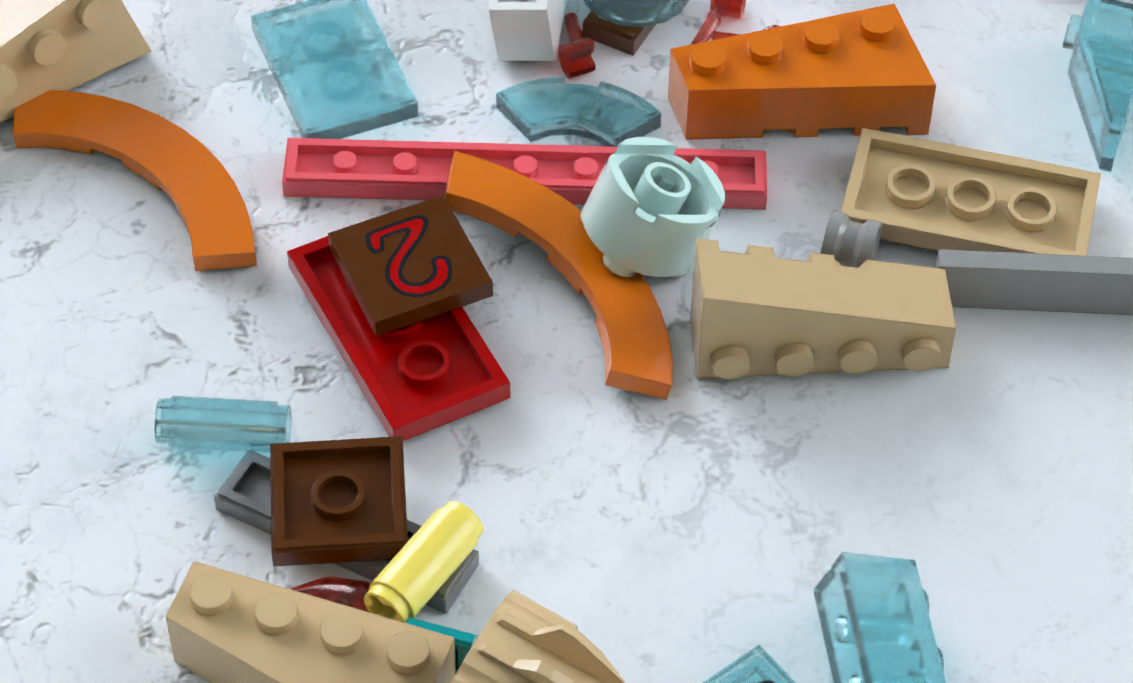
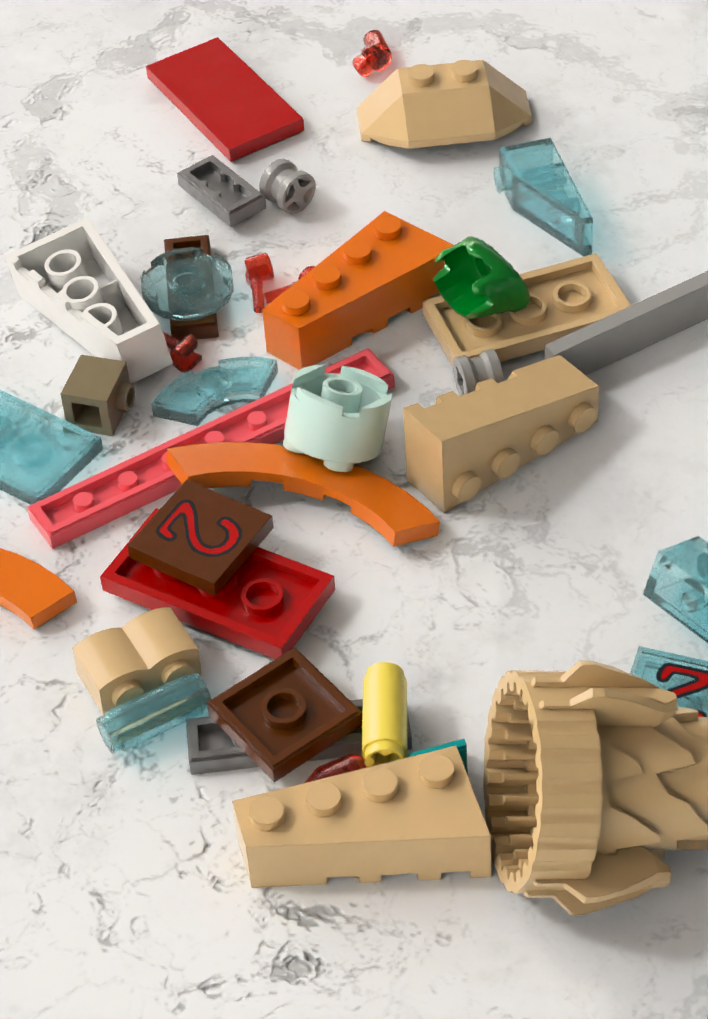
camera: 30 degrees left, 5 degrees down
(251, 357) = (135, 658): none -> tan brick
(447, 54) = (97, 394): none -> dark tan brick
(925, 137) = (479, 280): none -> green hair

